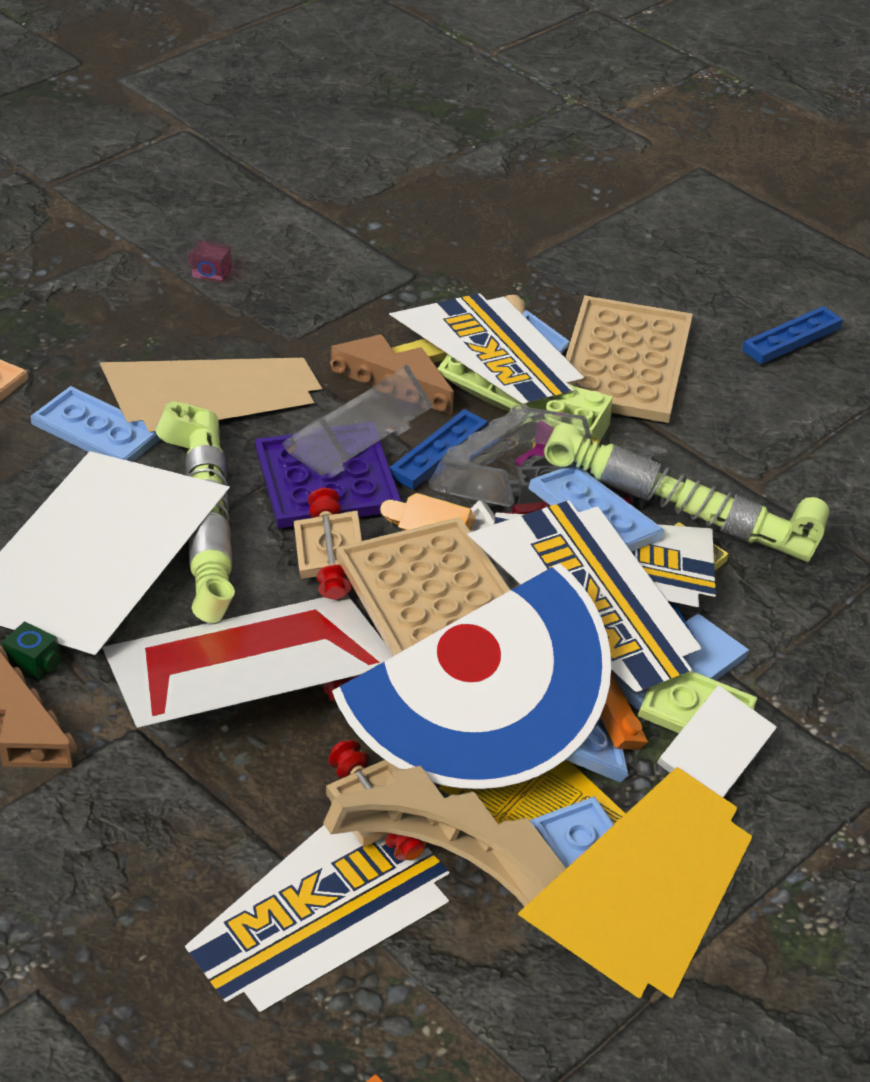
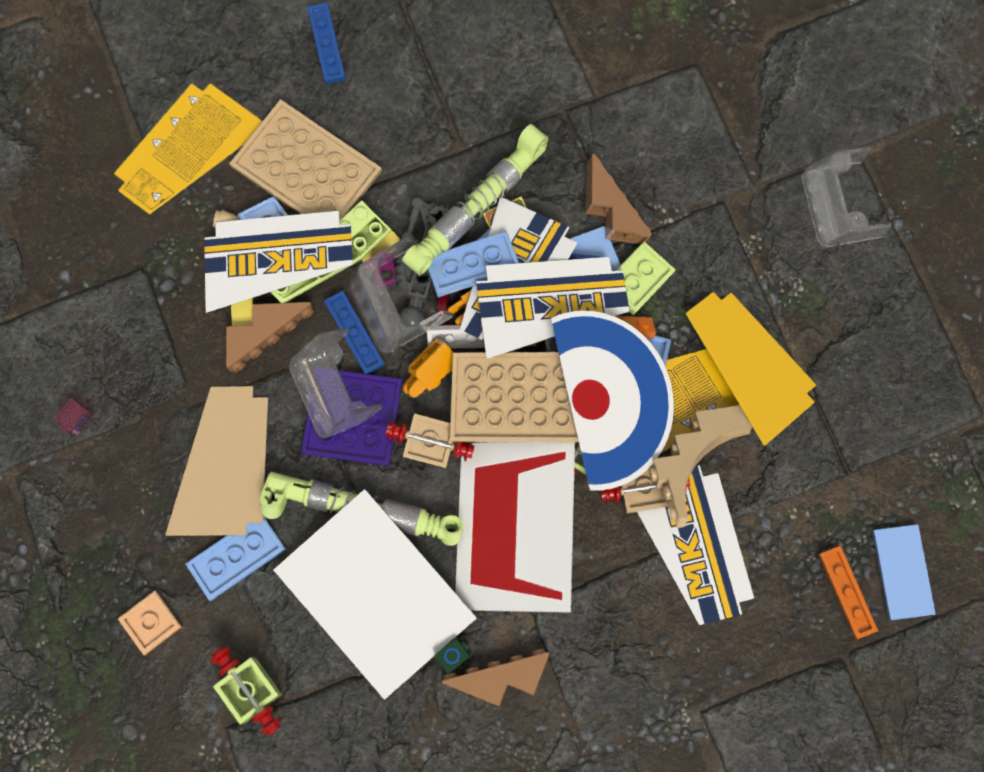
camera: 65 degrees left, 35 degrees up
(573, 828) = (704, 387): light blue tile -> none
(582, 267) = (185, 145): none -> yellow sticker
(718, 742) = (673, 281): white tile -> none
(782, 640) = (607, 200): none -> medium nougat slope

